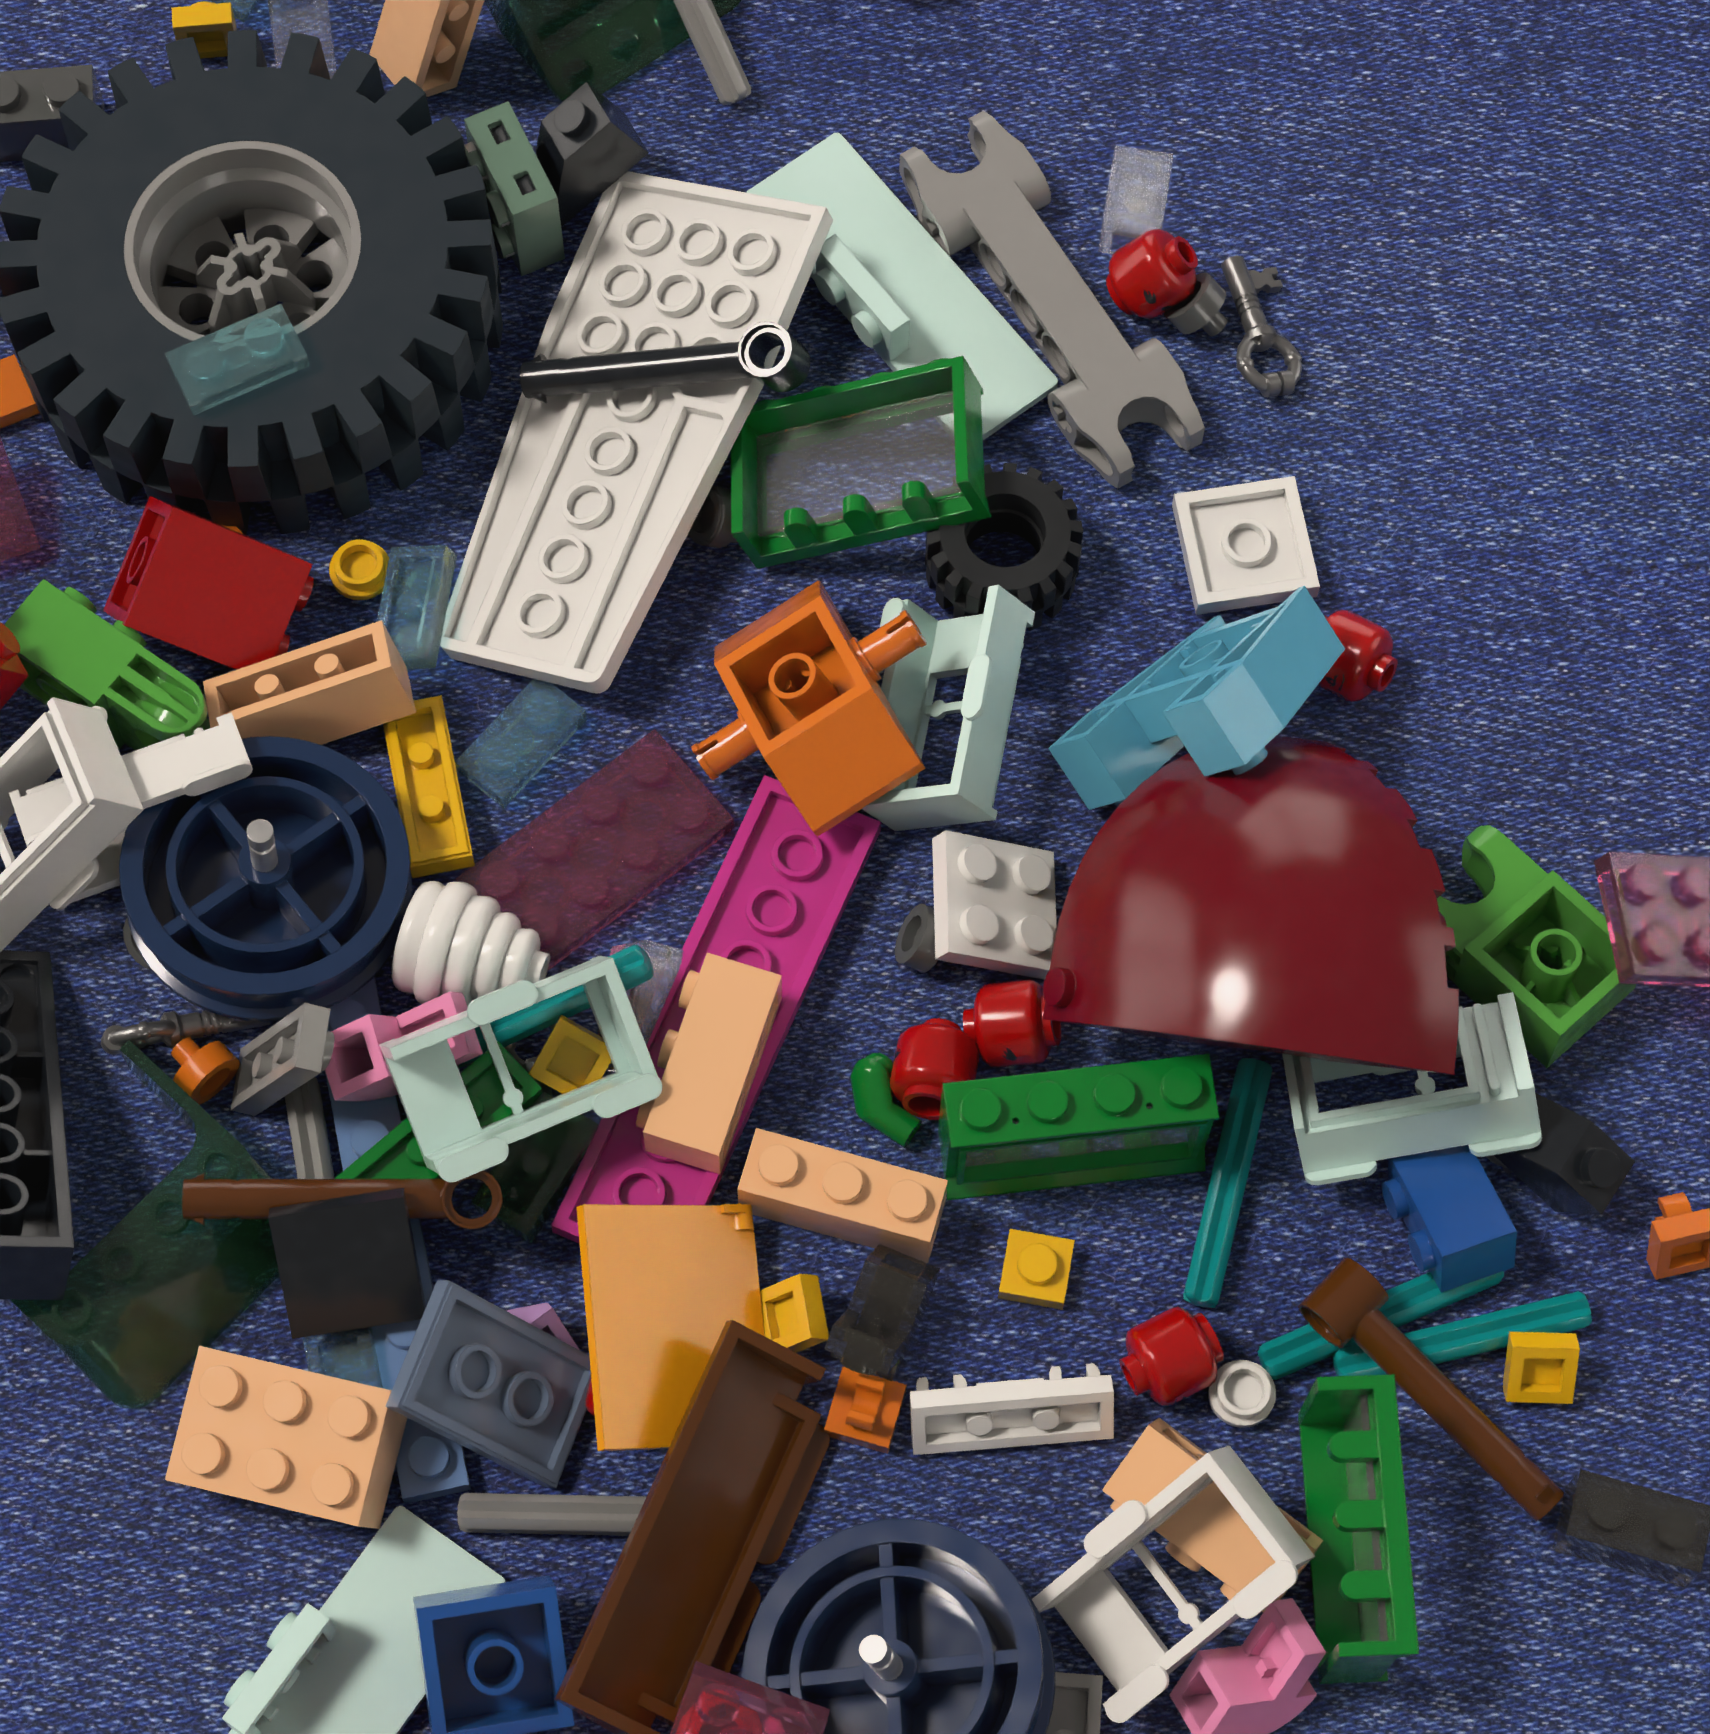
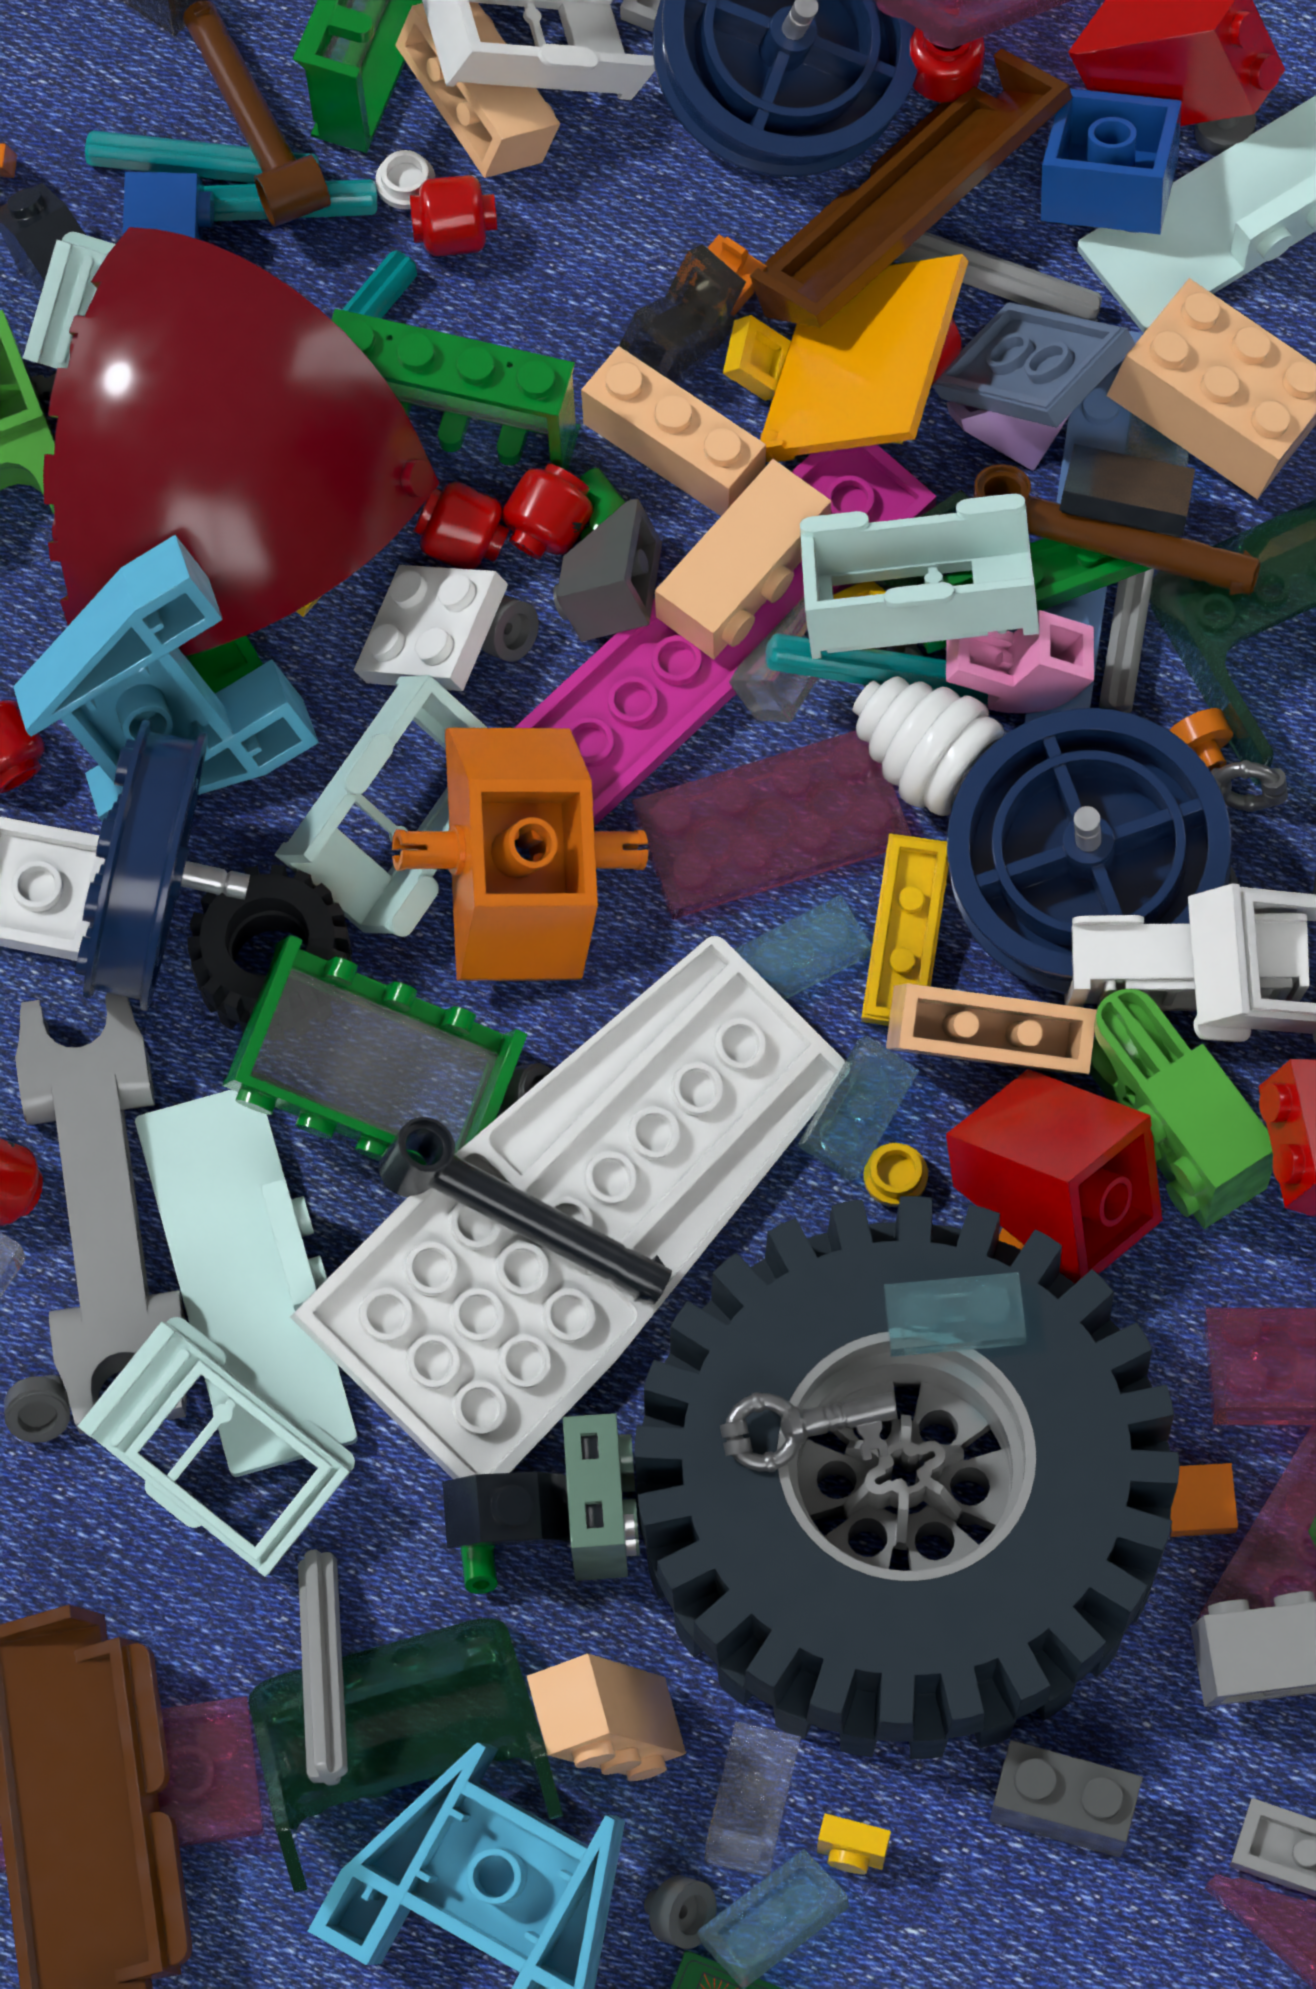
camera: 155 degrees left, 0 degrees up
(282, 1059) = (1127, 667): light grey plate -> none
(342, 221) = (798, 1424): none -> flat silver piece
(840, 1020) = (611, 575): none -> dark grey slope
(899, 162) = (150, 1391): none -> light aqua piece
(1012, 1412) = (603, 226): white plate -> none
(1026, 119) = (37, 1408): none -> dark grey tile
(1036, 1269) = (533, 328): yellow plate -> none
(1135, 514) = (146, 865): none -> dark blue wheel
(1541, 1367) = (151, 110): yellow plate -> none

